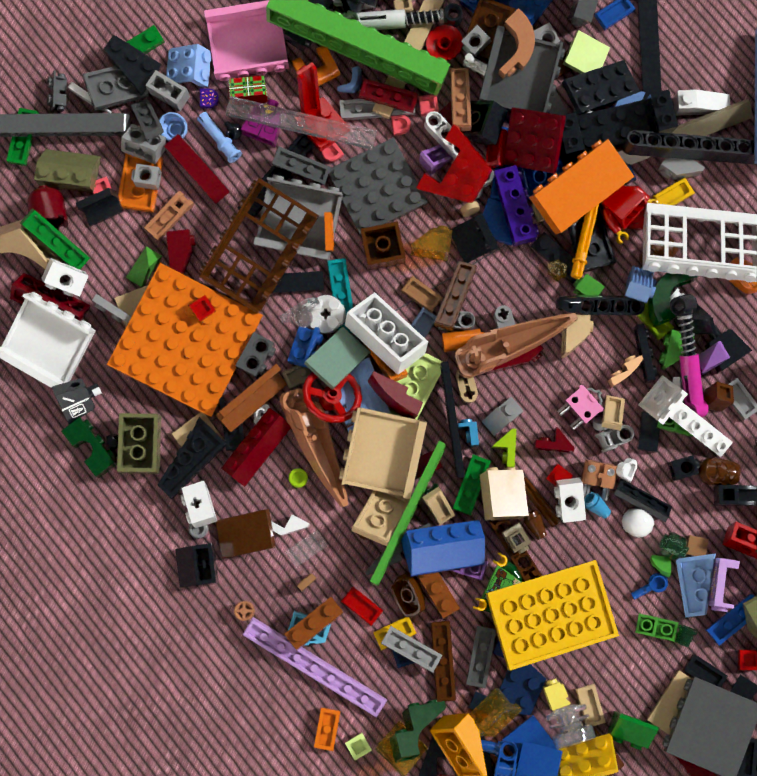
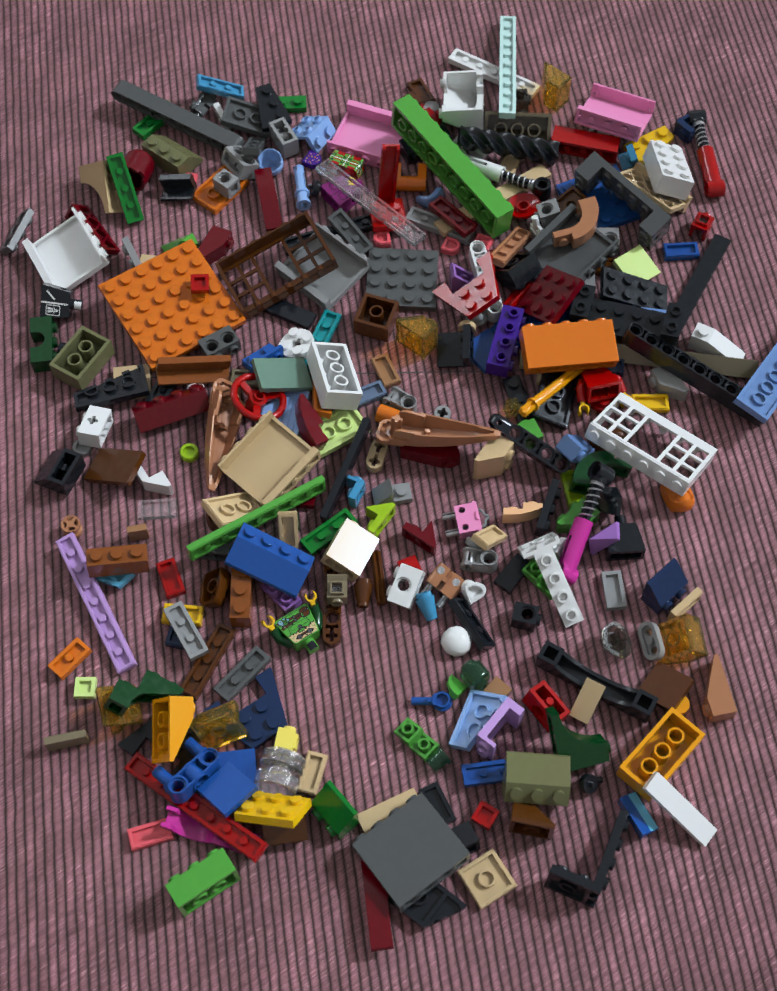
camera: 30 degrees right, 20 degrees down
(56, 269) = (108, 208): white brick -> none
(64, 65) = (219, 87): none -> dark azure tile
(168, 216) = (225, 219): nougat plate -> none
(301, 313) = (276, 329): clear tile -> none
(329, 232) = (339, 284): orange tile -> none
(455, 295) = (411, 381): reddish brown tile -> none
(552, 614) = (327, 670): yellow plate -> none
(719, 396) = (593, 575): reddish brown panel -> none
(719, 472) = (558, 635): reddish brown piece -> none

